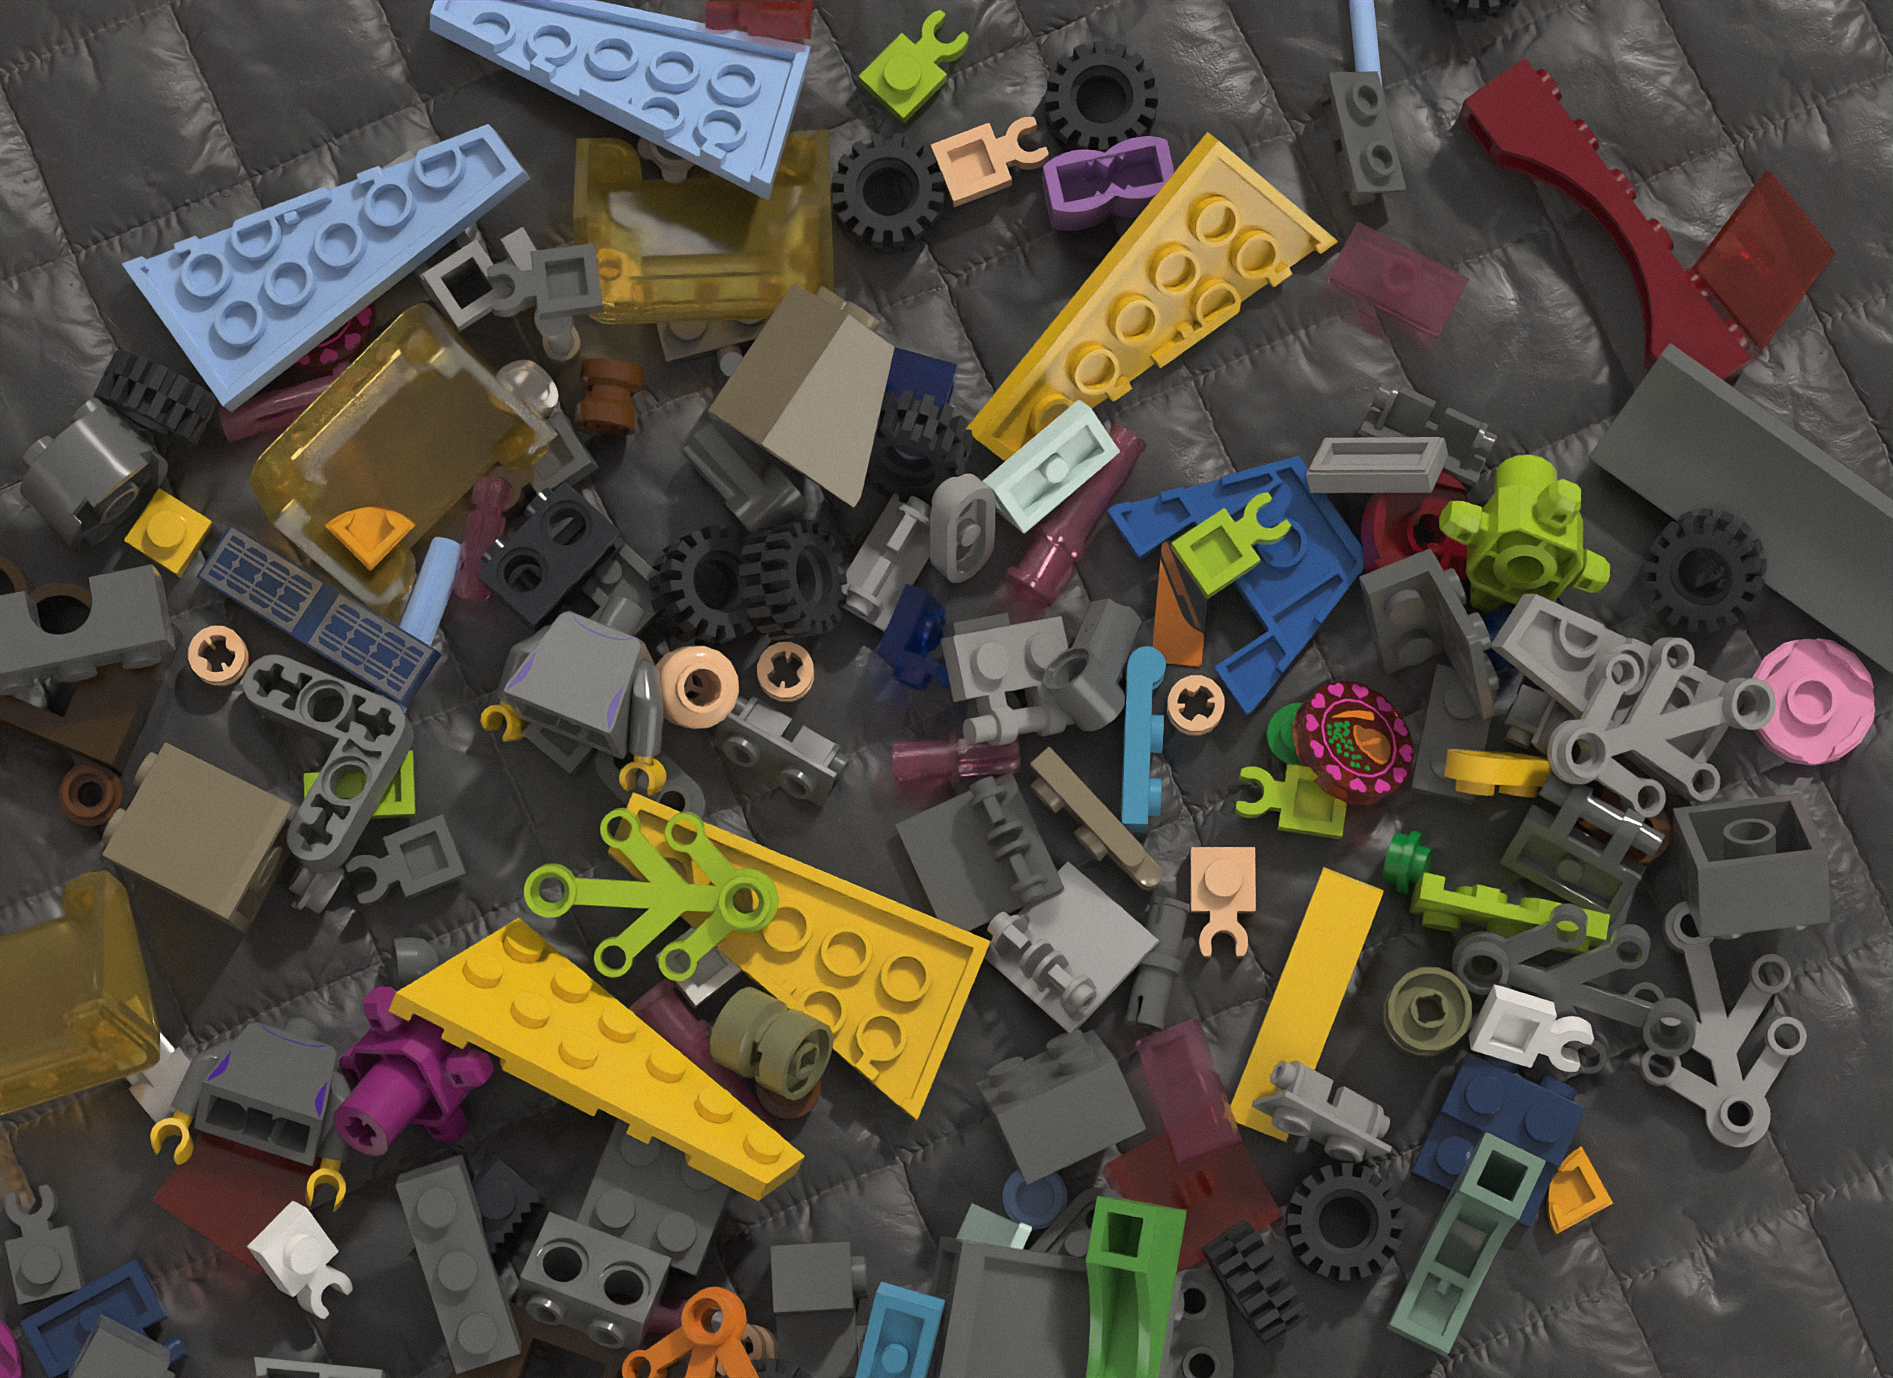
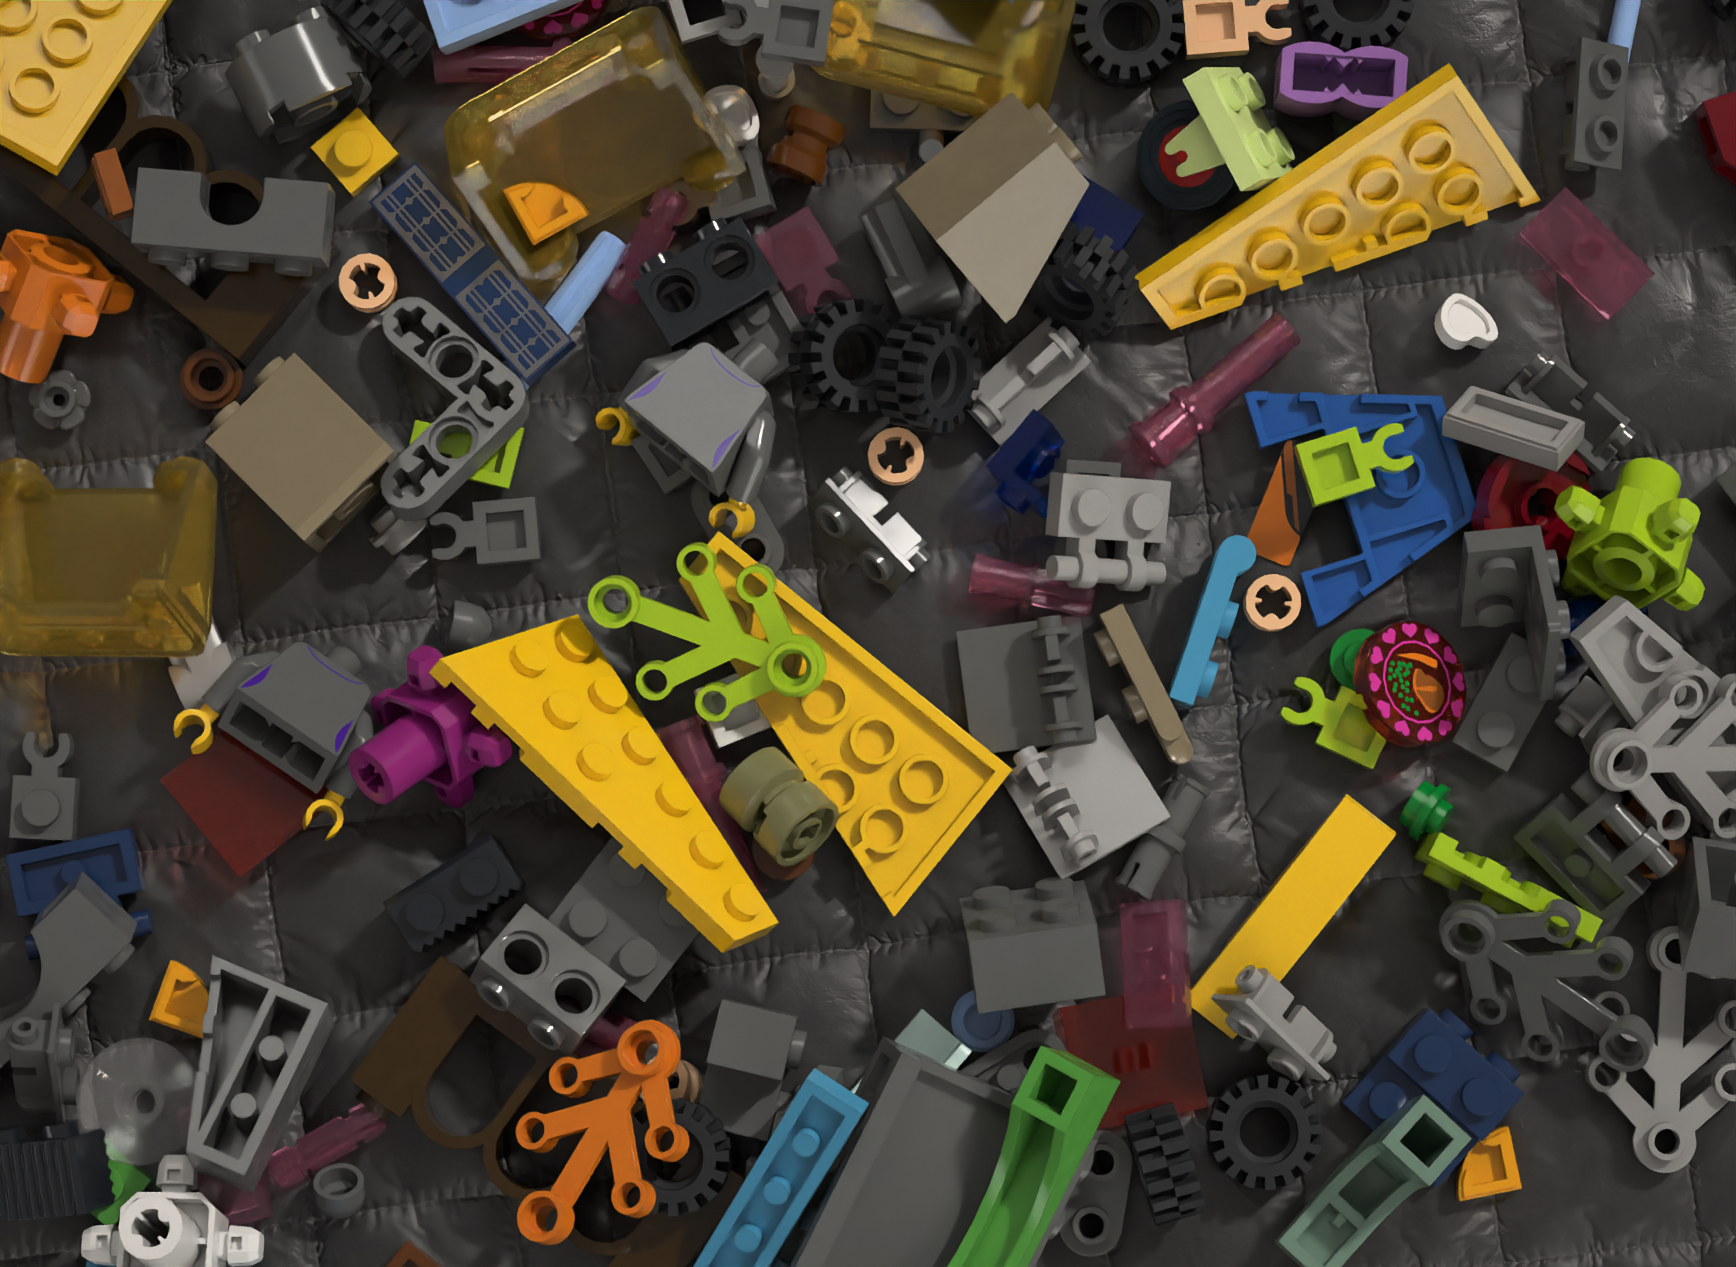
camera: 15 degrees right, 5 degrees up
(295, 1258) = (278, 873): white plate -> none
(458, 1264) = (425, 929): dark grey arch -> none
(636, 504) = (799, 255): none -> clear pink plate
(715, 691) = (822, 458): light nougat head -> none
(962, 527) = (1102, 370): light grey plate -> none
(1003, 281) = (1212, 145): none -> yellowish green plate
(1051, 466) = (1203, 338): light aqua panel -> none
(1088, 673) = (1178, 545): dark grey piece -> none
(1222, 887) = (1246, 782): light nougat plate -> none
(1299, 380) = (1464, 323): none -> white piece
(1426, 1012) = (1401, 959): olive wheel -> none
(1481, 770) = (1550, 756): yellow plate -> none
(1523, 1025) = (1488, 1001): white plate -> none

